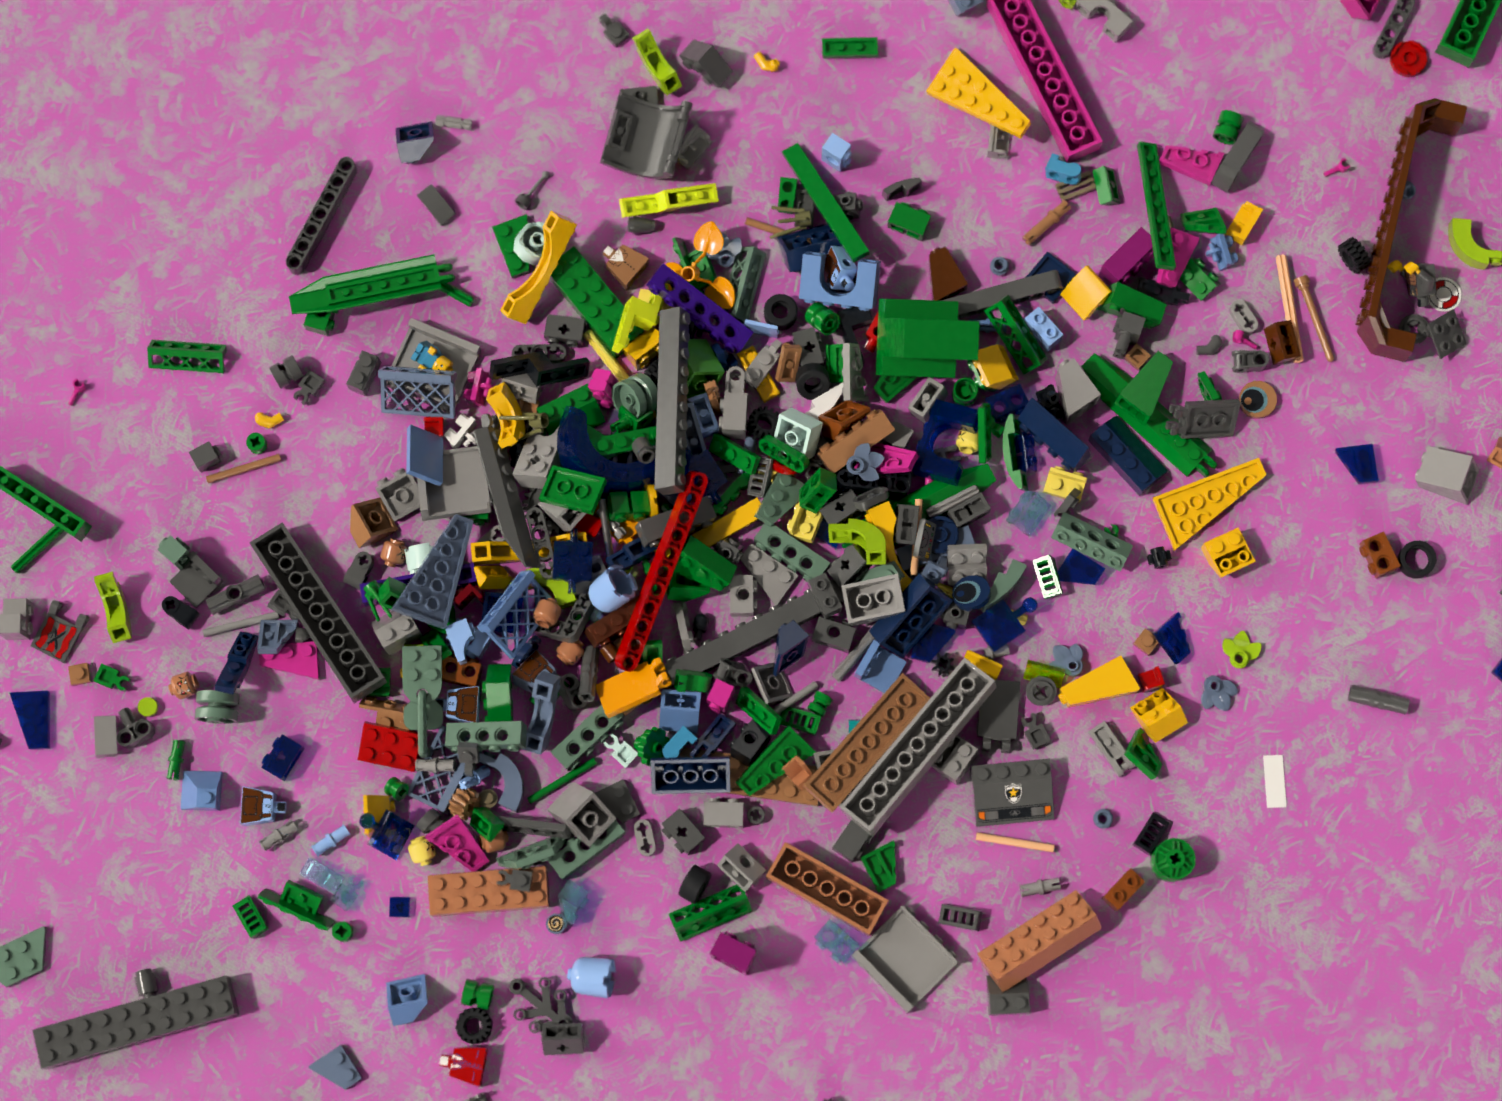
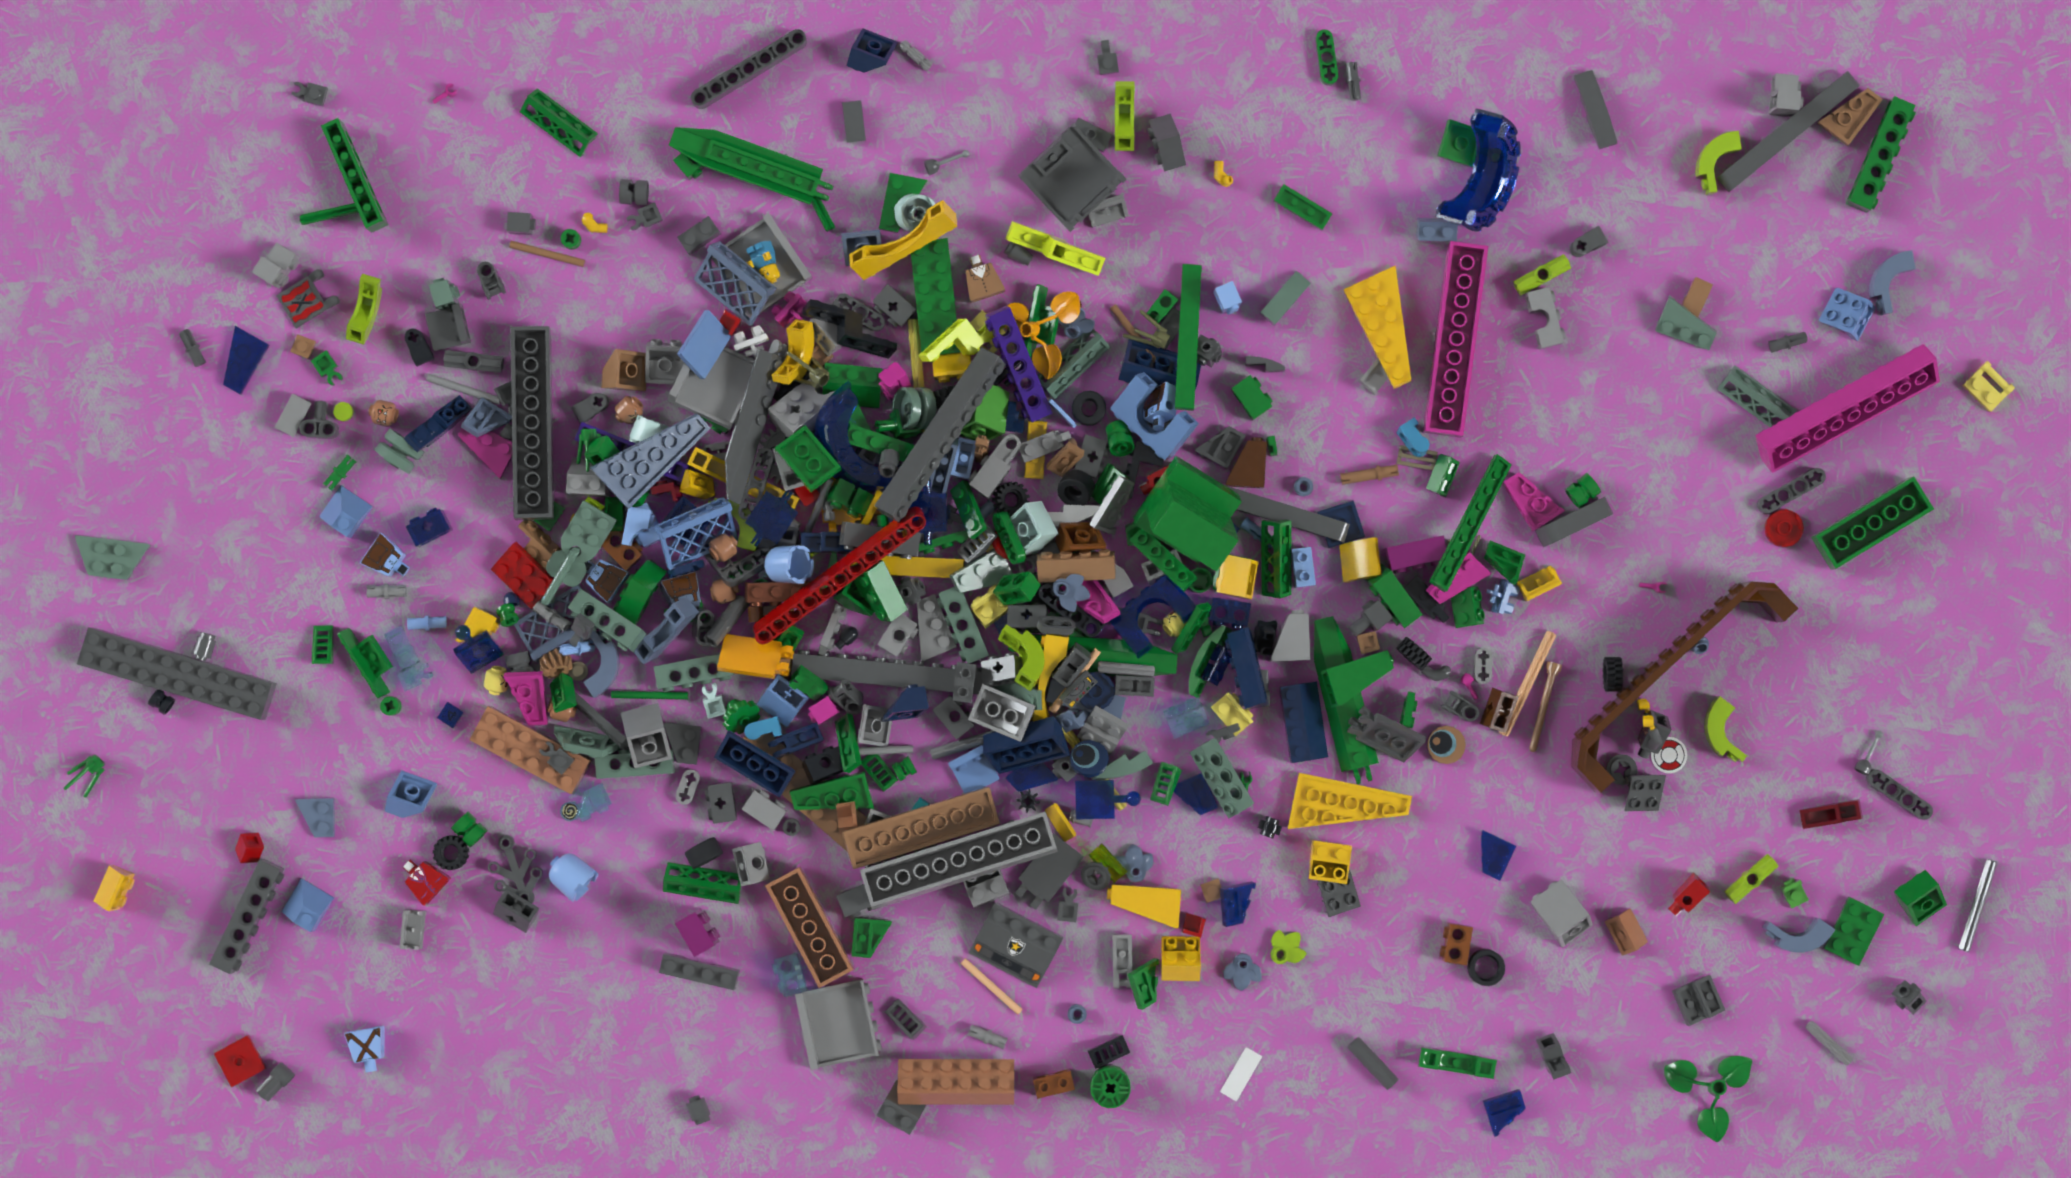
camera: 30 degrees right, 10 degrees up
(137, 1056) = (161, 701): none -> black wheel
(210, 520) = (491, 281): none -> dark grey piece
(391, 772) = (512, 598): none -> dark blue hinge
(496, 296) = (855, 240): none -> sand blue slope
(756, 989) = (698, 971): none -> dark grey arch
(883, 127) = (1285, 298): none -> sand green slope
(911, 275) = (1222, 446): none -> dark grey wing
(924, 390) = (1163, 559): none -> green plate
(953, 250) = (1271, 443): none -> green tile
(1181, 340) = (1413, 653): none -> black tyre
(1254, 578) = (1339, 896): none -> dark grey hinge
(1448, 653) = (1457, 1062): none -> green slope

